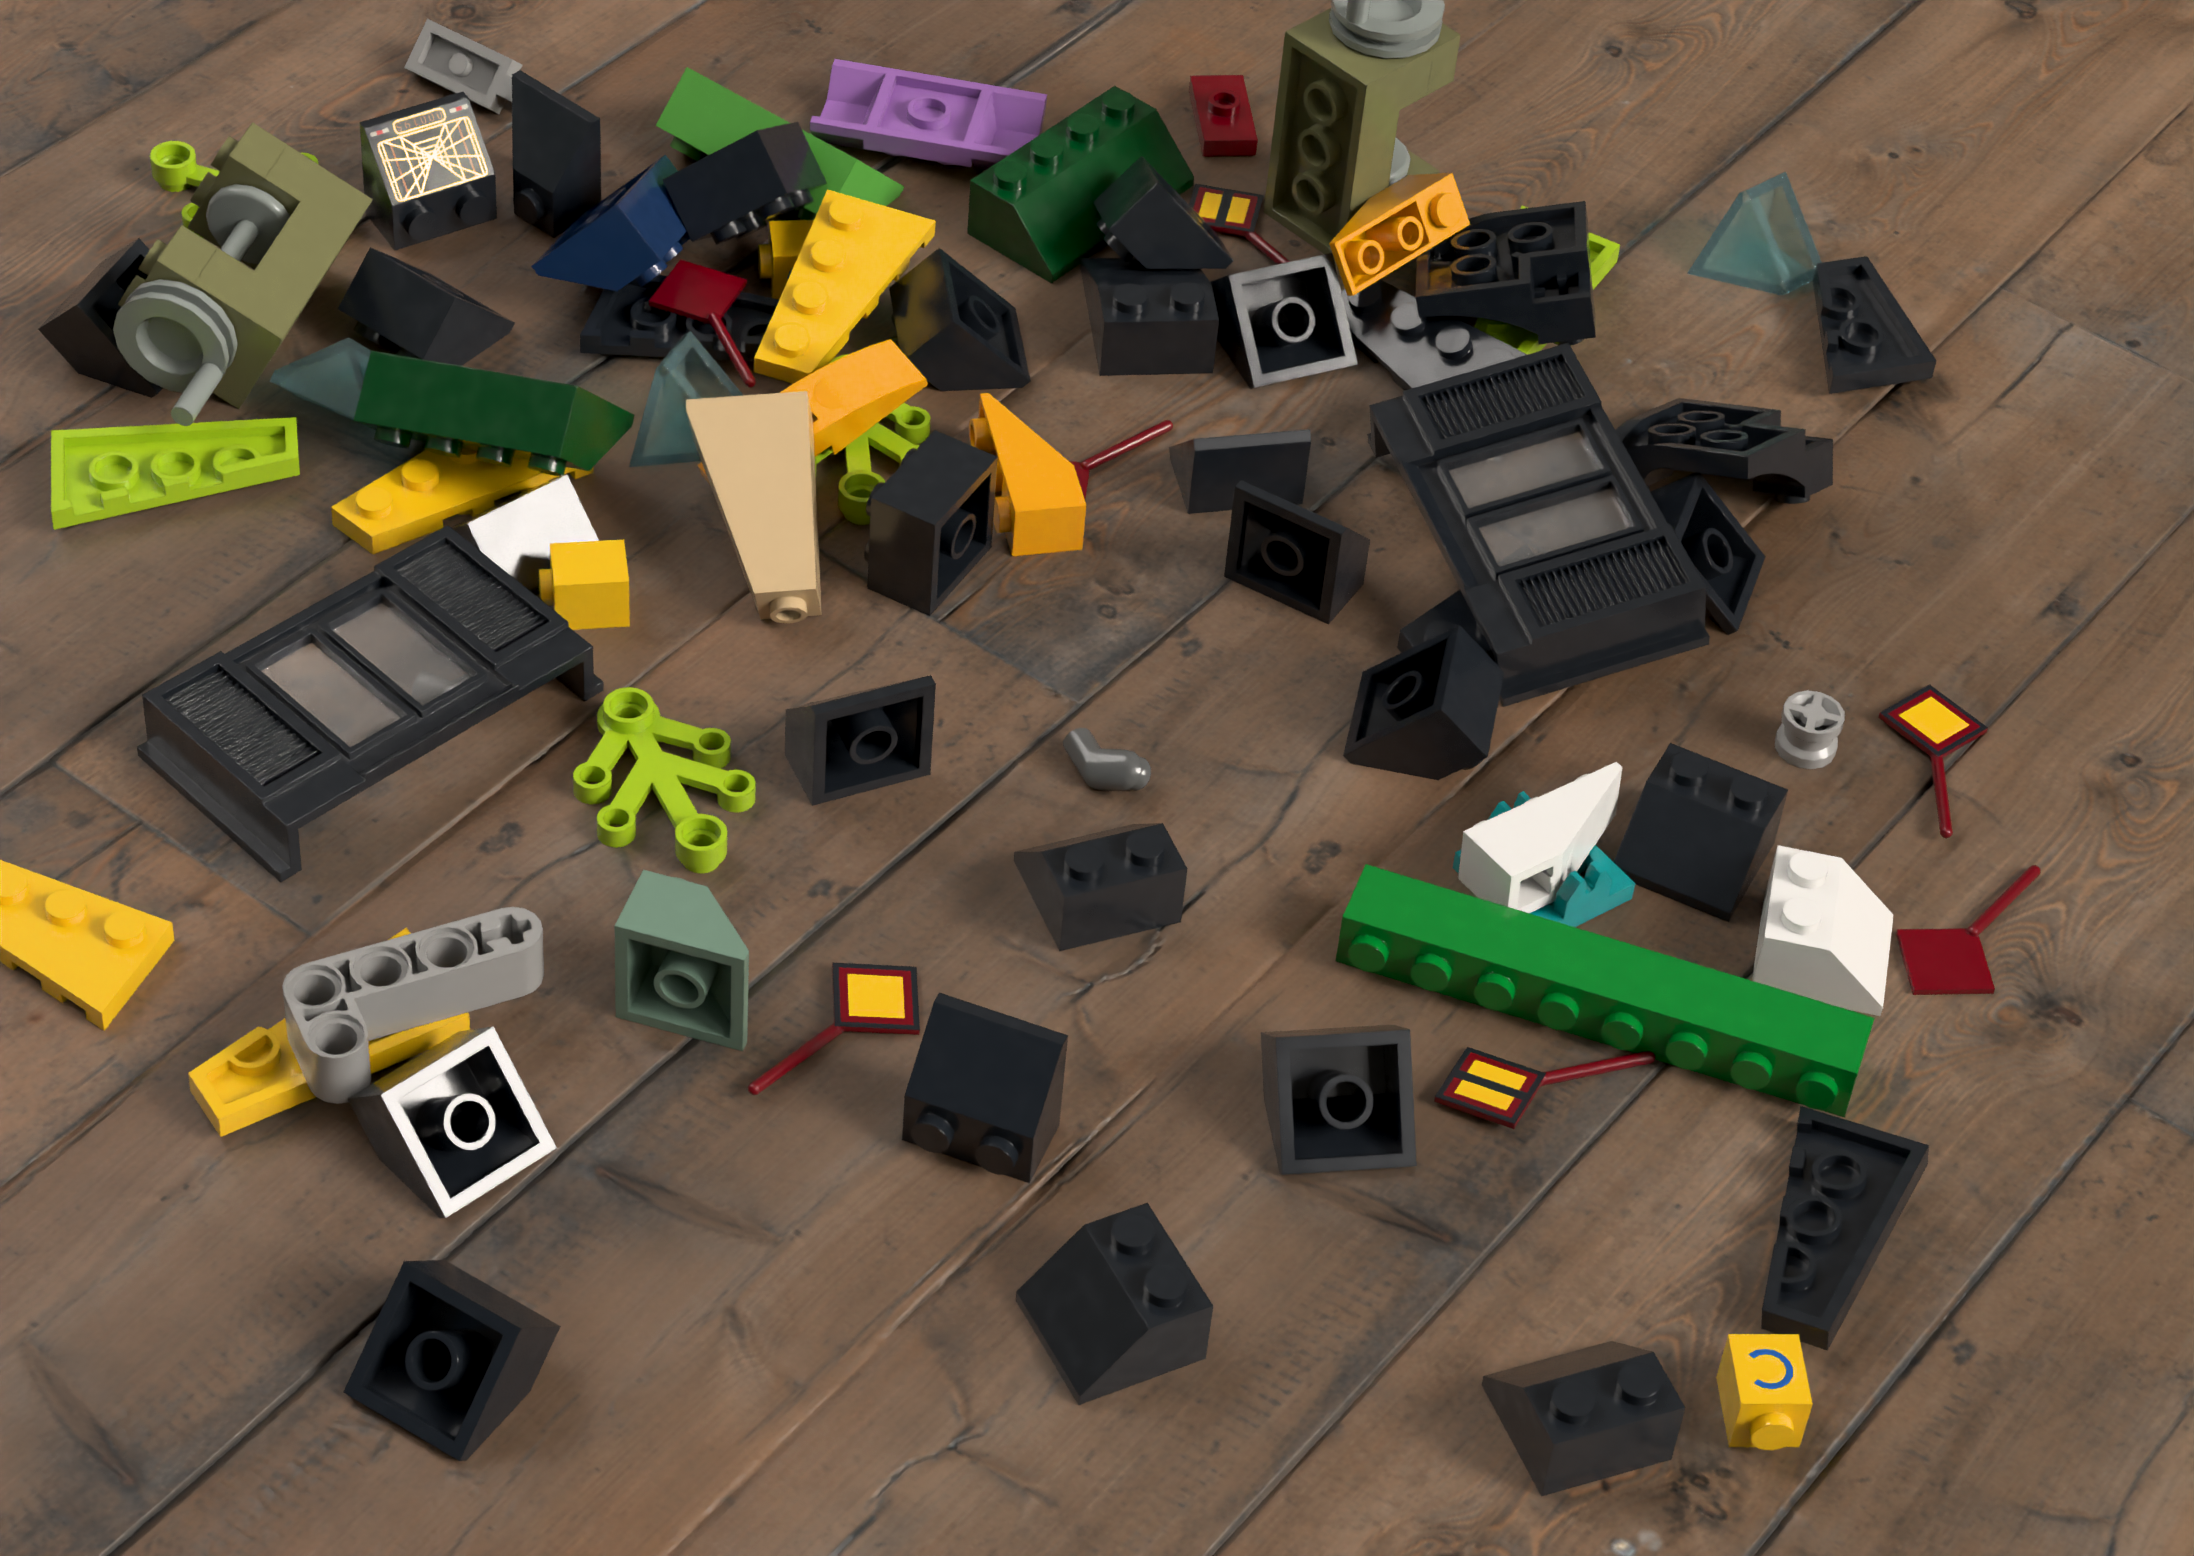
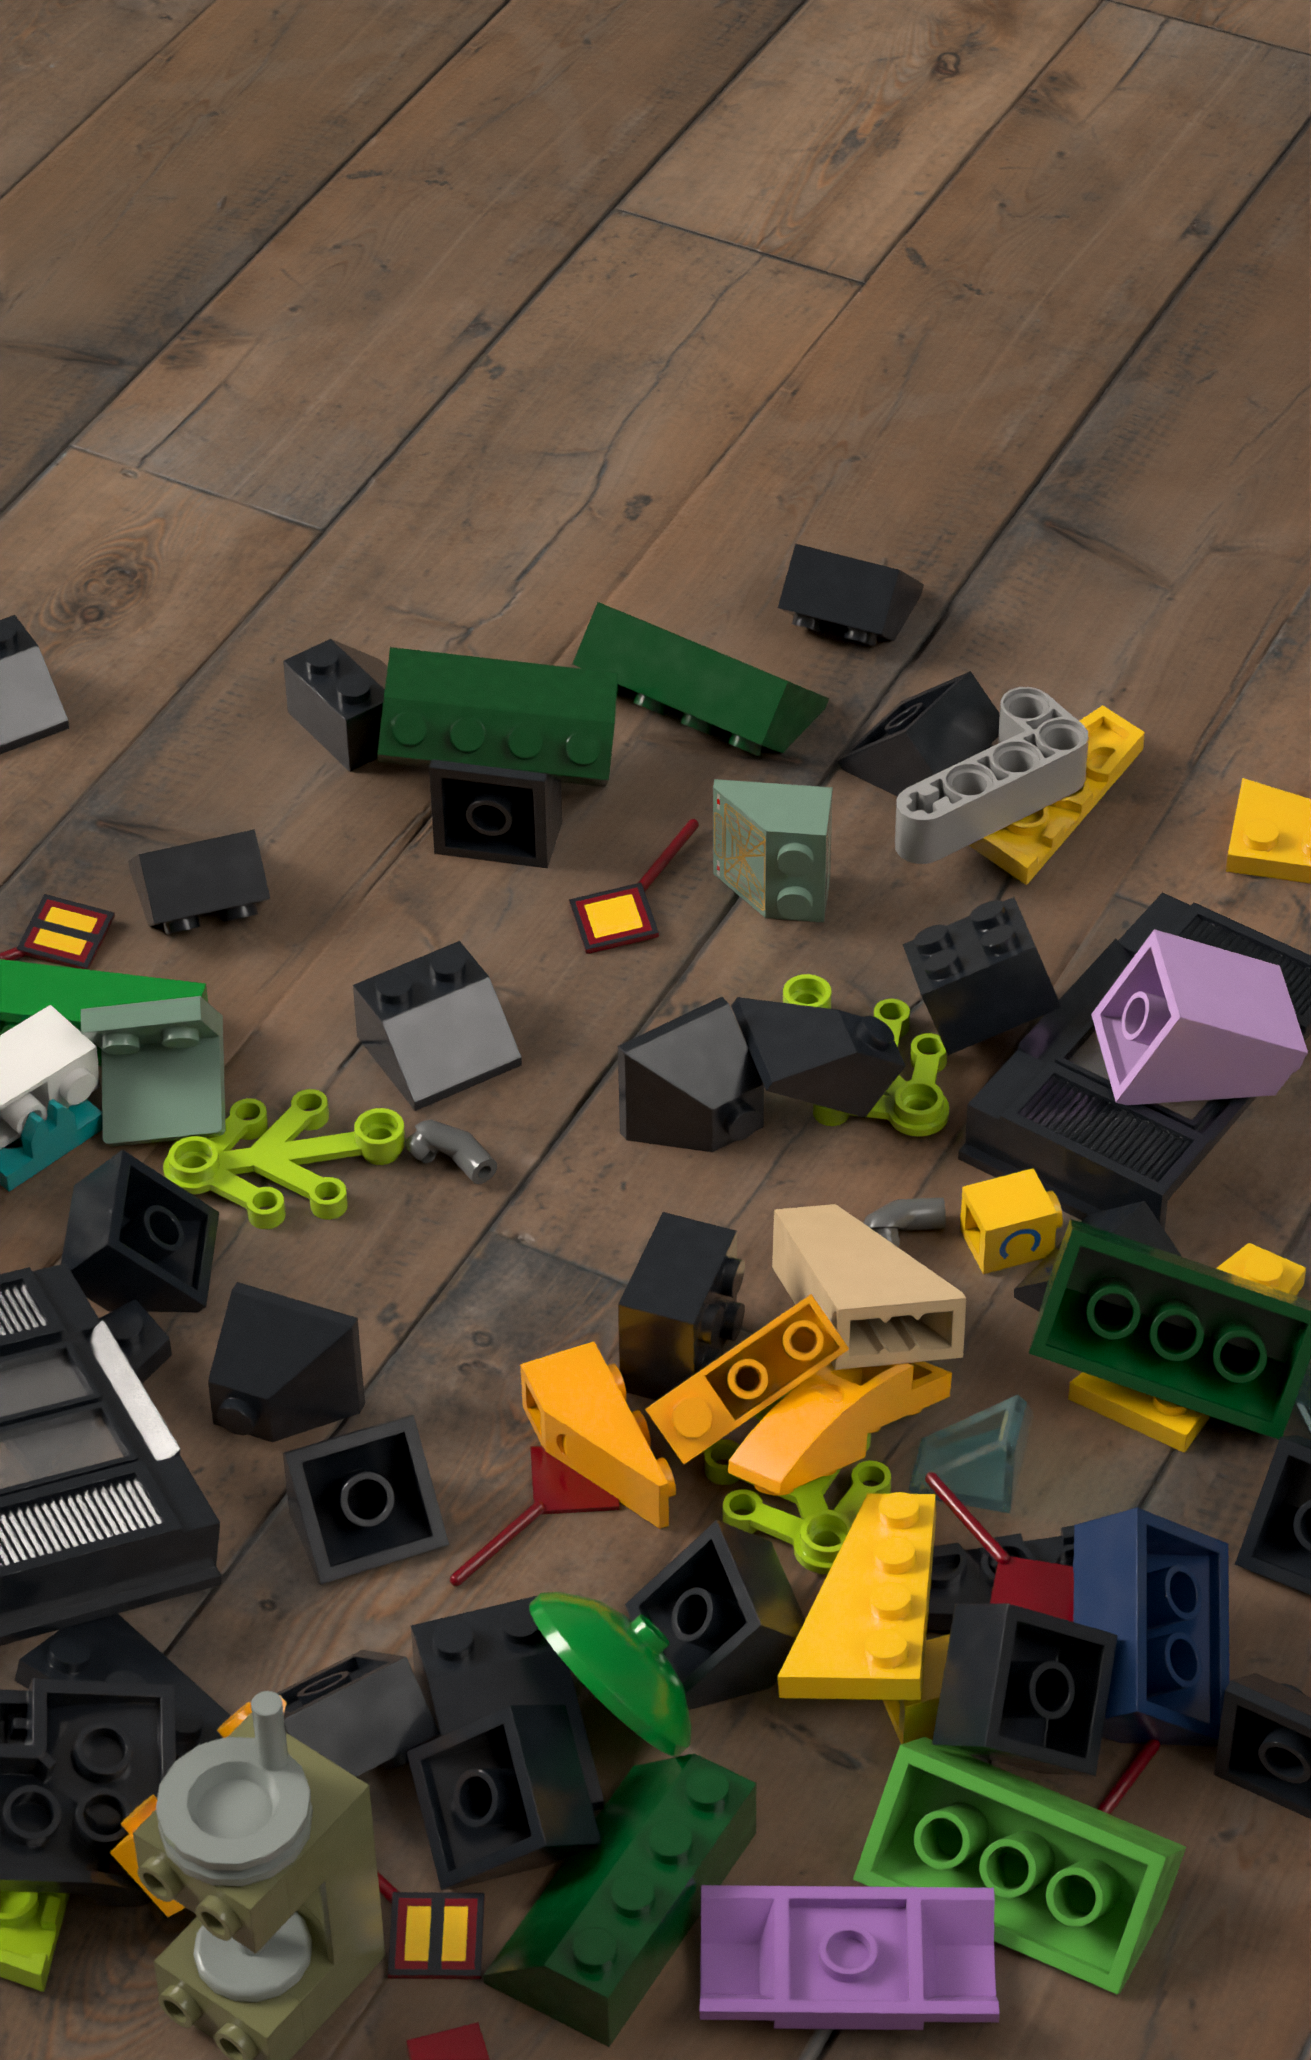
camera: 175 degrees right, 0 degrees up
(345, 612) = (1197, 1025): none -> lavender slope
(524, 762) = (980, 975): none -> black brick
(687, 1261) = (697, 681): none -> dark green slope
(688, 624) = (907, 1216): none -> dark grey arm
(721, 716) = (820, 1053): none -> black slope
(894, 423) = (747, 1379): none -> light orange slope
(965, 1158) = (498, 715): none -> dark green slope
(1066, 254) = (619, 1665): none -> green dish
(1351, 789) = (211, 1165): none -> lime plant
(1403, 826) = (159, 1069): none -> sand green bracket

